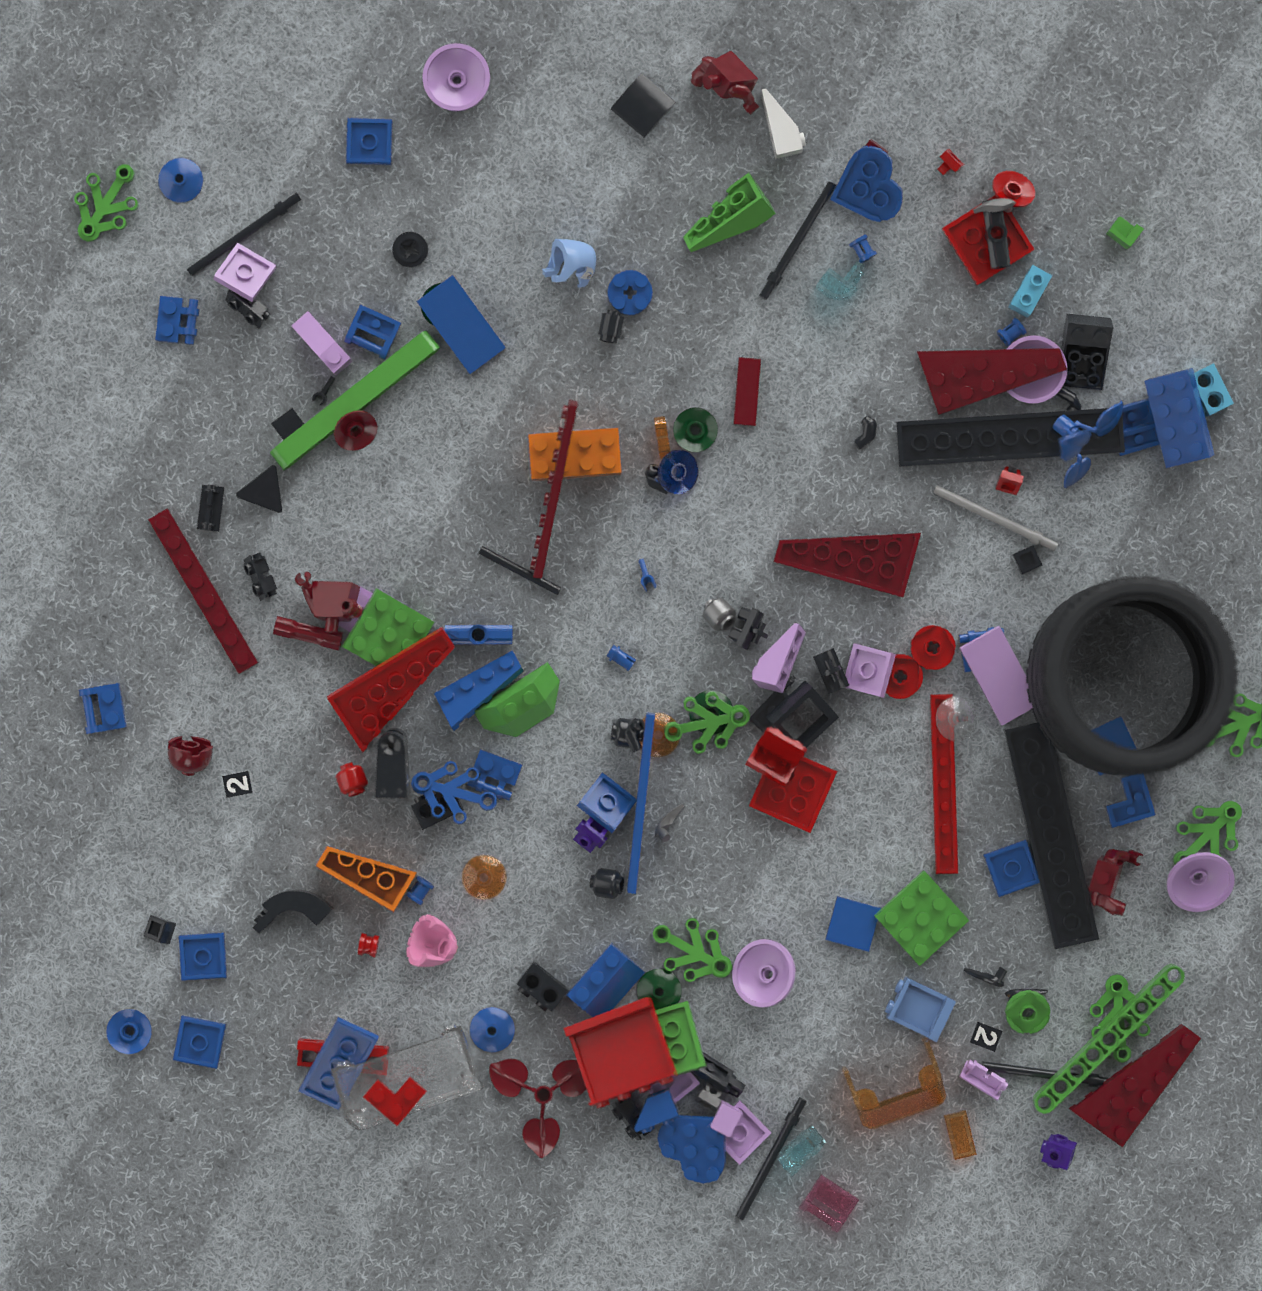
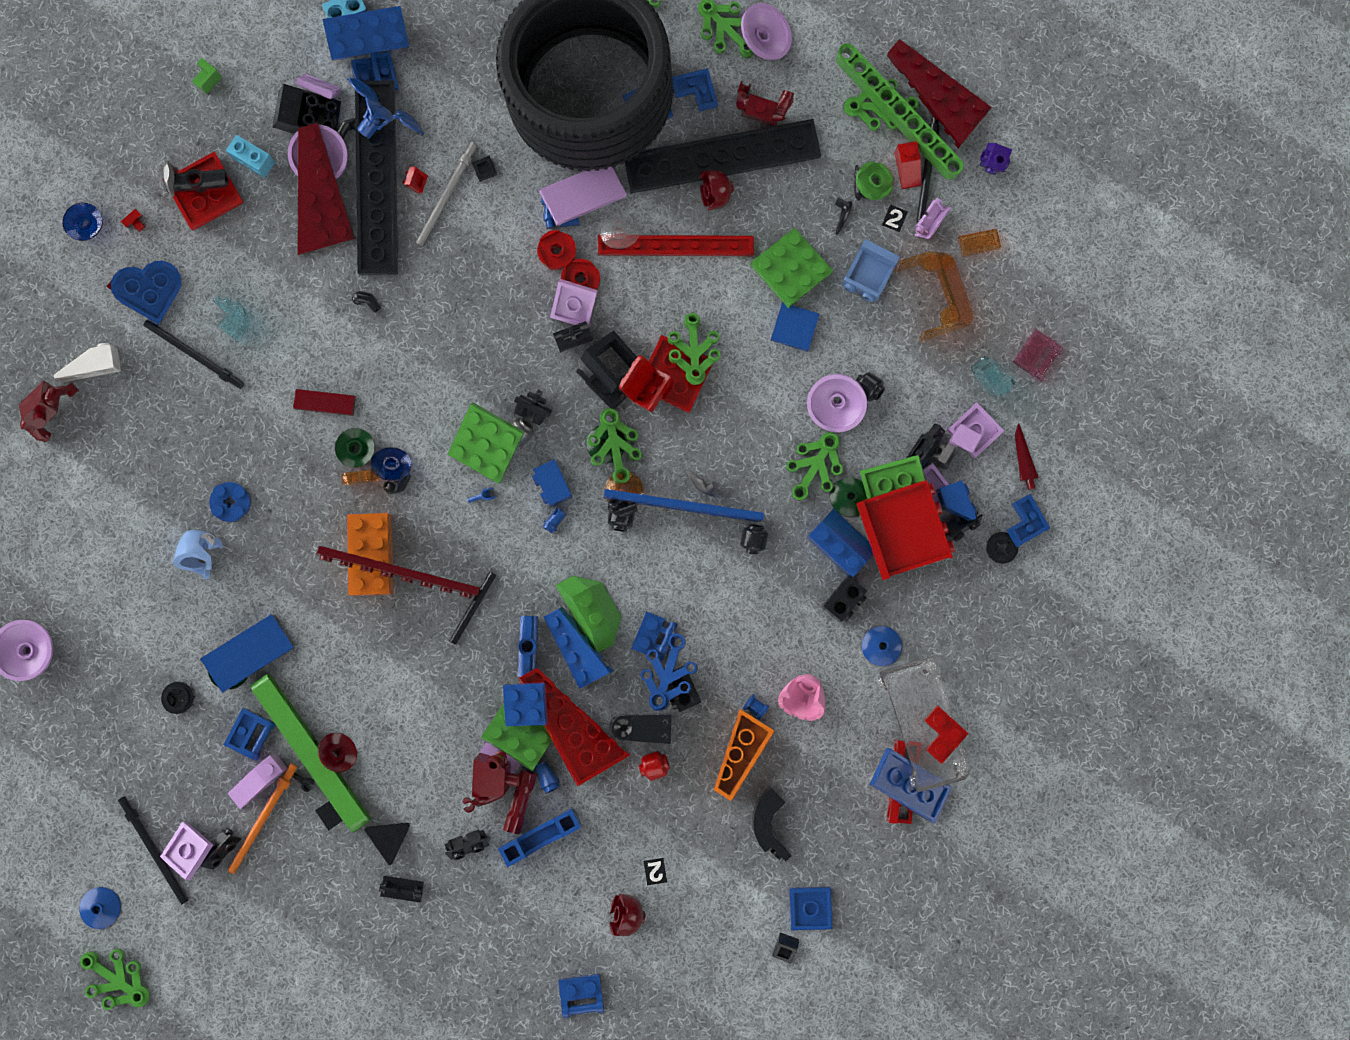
camera: 90 degrees left, 5 degrees down
(118, 1036) = (885, 987): blue dish -> none
(170, 317) = (224, 921): blue plate -> none
(199, 1042) = (888, 913): blue tile -> none
(203, 591) = (477, 898): dark red plate -> none
(271, 657) = (540, 836): none -> blue arch
(319, 371) = (282, 784): none -> orange bar
(335, 662) = (547, 778): none -> blue cone
(368, 945) = (804, 755): red wheel -> none
(369, 141) = (77, 732): blue tile -> none
(413, 636) = (525, 704): none -> blue plate
(495, 872) = (737, 656): clear orange dish -> none
(508, 1078) = (922, 630): dark red plant -> none
(590, 834) = (711, 553): dark purple brick -> none
(606, 1174) = (1001, 557): none -> black gear
(607, 802) = (682, 536): blue tile -> none
(610, 326) = (258, 519): black brick -> none
(636, 1197) = (1031, 522): none -> blue plate
(642, 105) = (63, 484): black slope -> none
(662, 653) = (552, 483): none -> blue brick
(695, 1146) = (987, 468): blue plate -> none
(697, 1191) = (1026, 467): none -> dark red bar
(704, 577) = (486, 442): none -> bright green plate
(739, 212) = (163, 401): bright green wedge -> none
(776, 664) = (563, 382): lavender slope -> none
(786, 1011) = (872, 386): none -> black head
(791, 1120) = (965, 385): black bar -> none
(818, 809) = (694, 352): none -> bright green plant
(856, 244) = (203, 297): blue bush -> none
(865, 561) = (478, 306): dark red wing -> none
(954, 96) = (74, 218): none -> clear blue dish
(1008, 828) = (715, 189): none -> dark red cylinder
(1011, 332) = (285, 173): blue bush -> none
(1012, 868) = (751, 191): blue tile -> none
(1015, 187) = (154, 171): red dish -> none
(1047, 1051) = (908, 164): none -> red slope
(1117, 363) = (318, 86): none -> lavender tile

